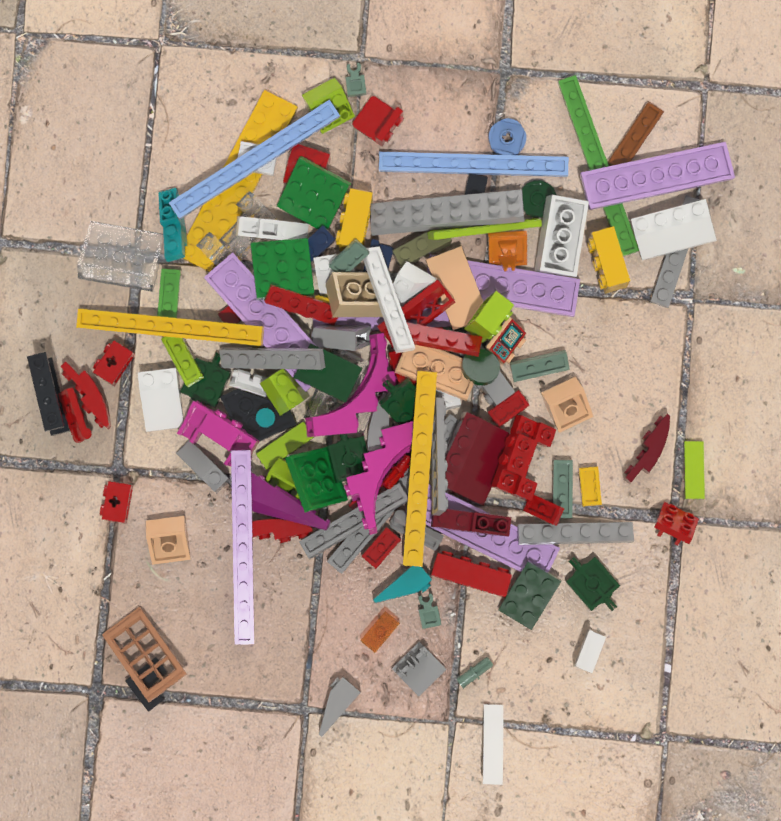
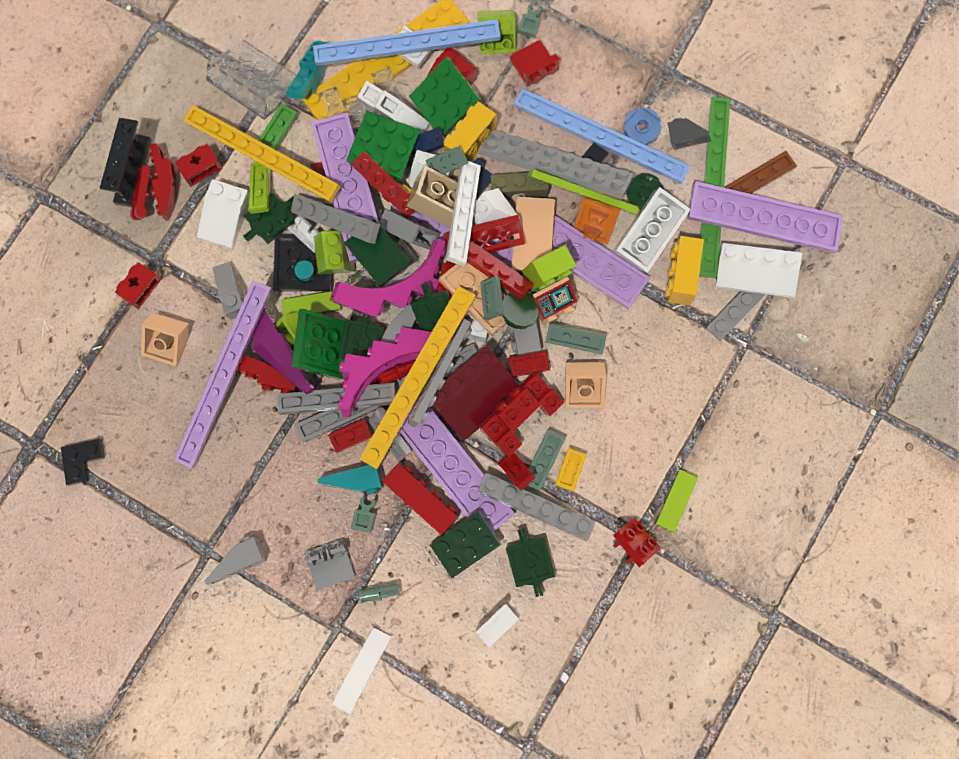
camera: 30 degrees right, 5 degrees down
(165, 682) = (96, 464): nougat piece -> none
(217, 428) = (256, 258): dark pink bracket -> none
(380, 632) = (310, 512): clear orange plate -> none
(452, 367) = (491, 298): none -> sand green plate
(473, 522) = (443, 450): dark red slope -> none
(550, 128) = (686, 133): none -> dark grey slope
(654, 443) = (649, 458): dark red slope -> none

